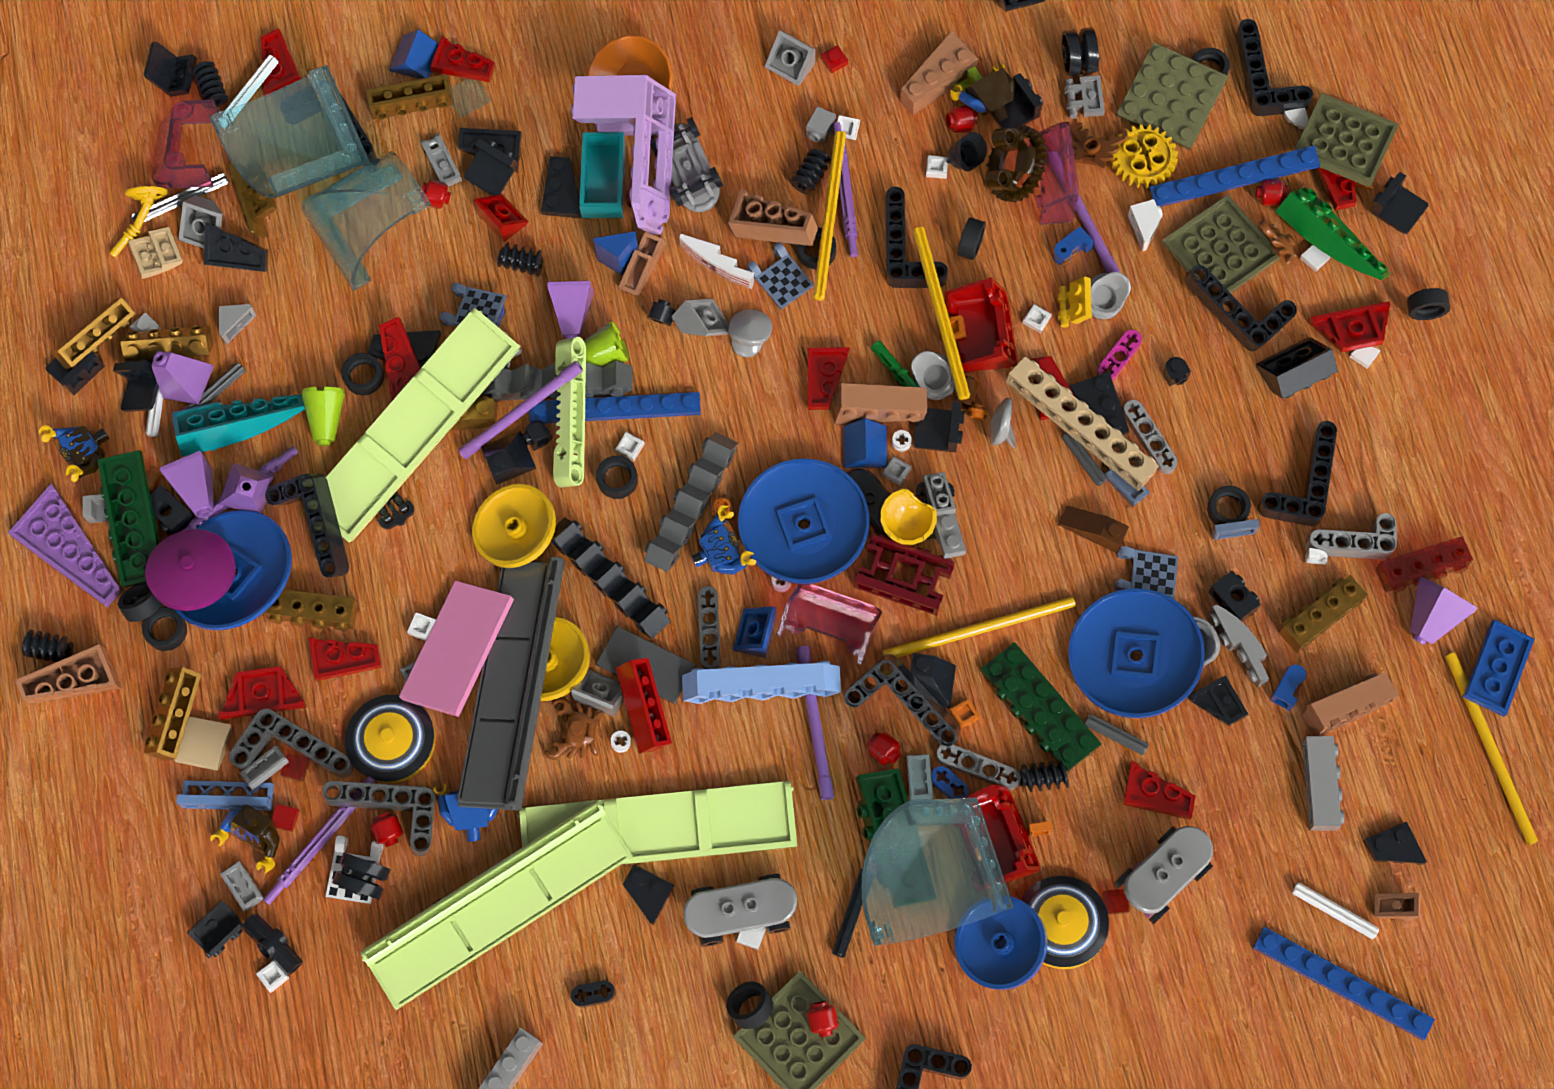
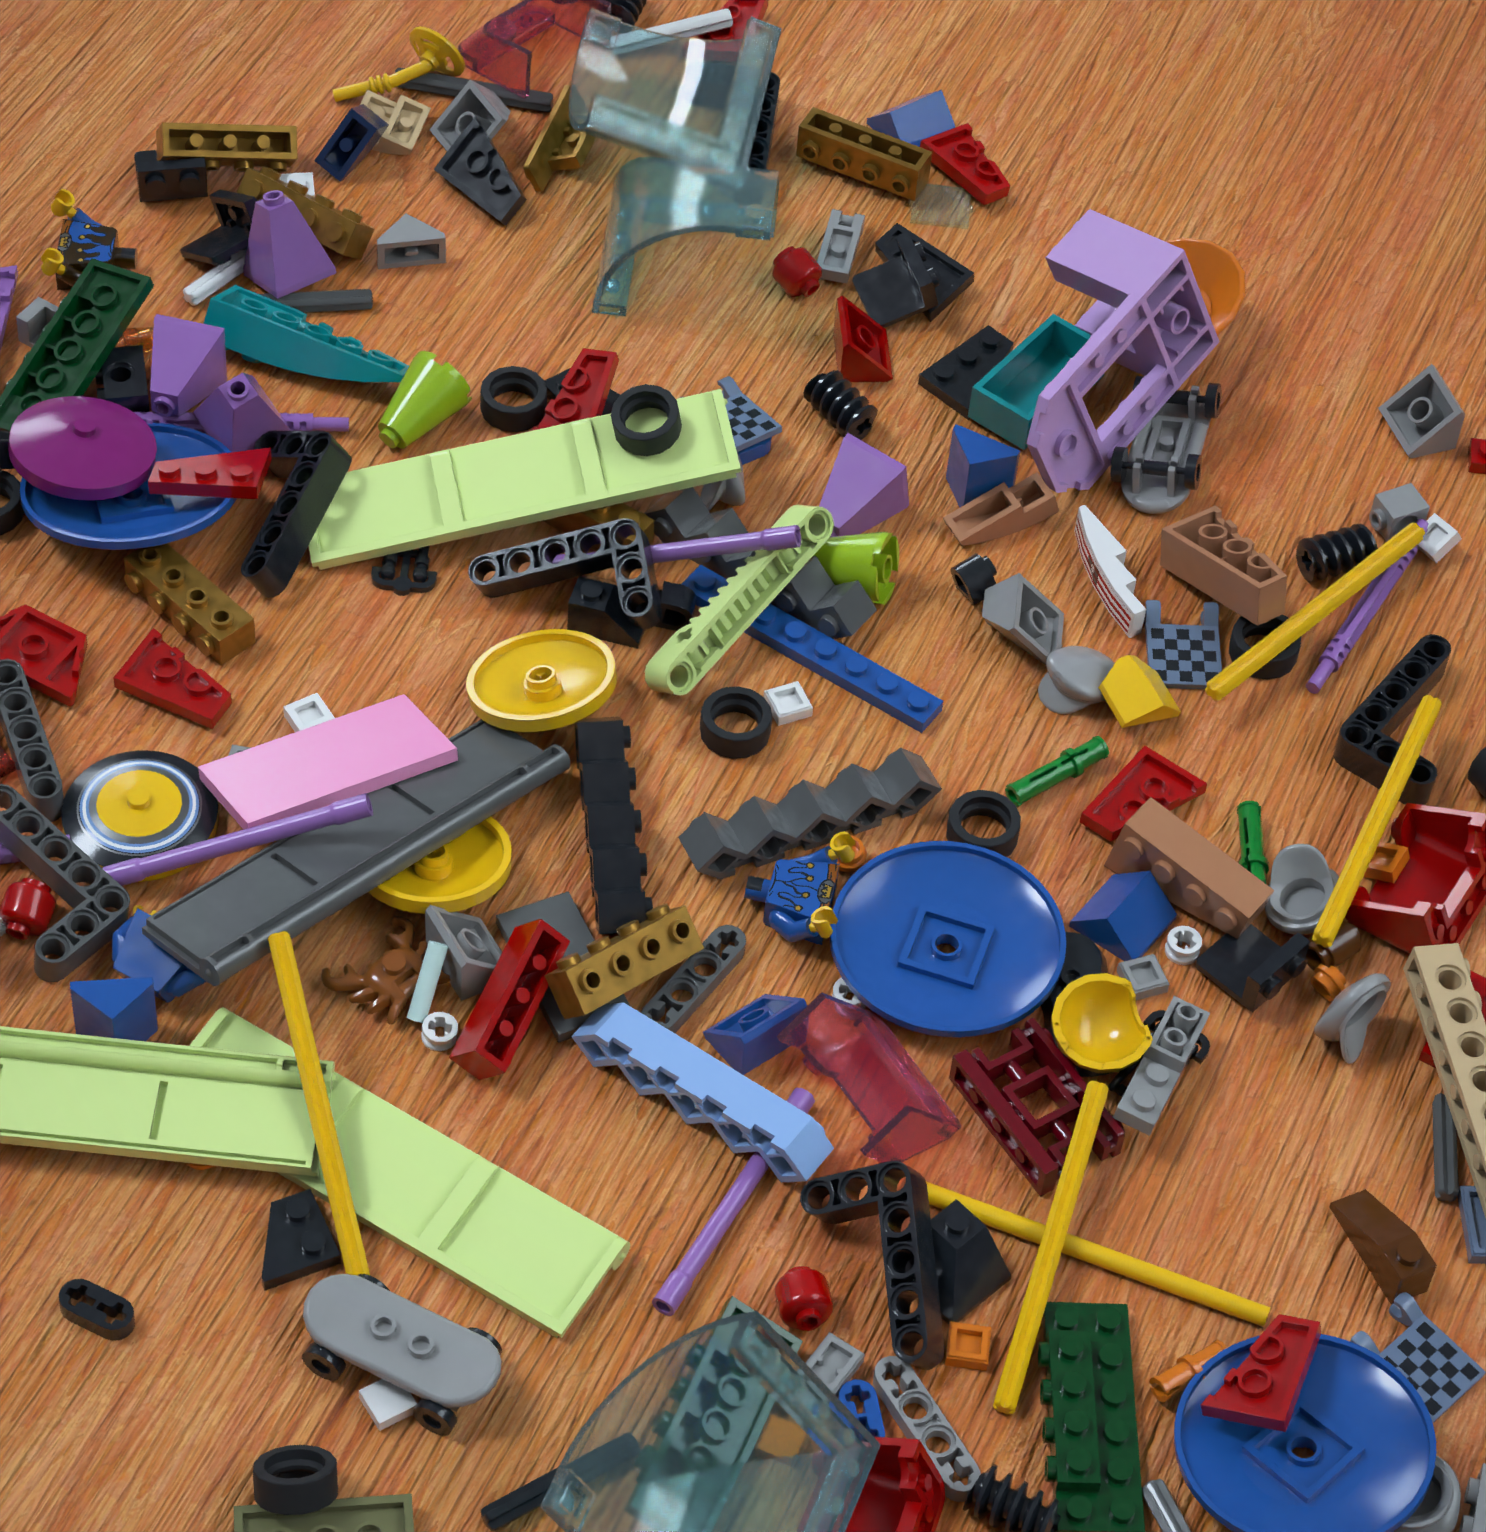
camera: 30 degrees right, 20 degrees down
(151, 281) = (351, 141): none -> dark blue slope
(267, 536) = (216, 475): none -> red wing
(442, 340) = (640, 398): none -> black tyre
(478, 450) = (578, 563): none -> black beam
(478, 854) = (115, 1008): none -> blue slope
(494, 679) = (336, 813): none -> medium lavender piece
(598, 724) = (427, 981): none -> light aqua piece
(610, 827) = (318, 1104): none -> yellow axle
(677, 647) = (624, 961): none -> pearl gold brick
(768, 431) = (985, 804): none -> black tyre
(782, 321) = (1137, 693): none -> yellow slope
(786, 369) = (1069, 764): none -> green pin
(965, 640) = (1050, 1248): none -> yellow axle
(1062, 654) = (1177, 1377): none -> orange pin
(1103, 638) = (1270, 1378): none -> red wing

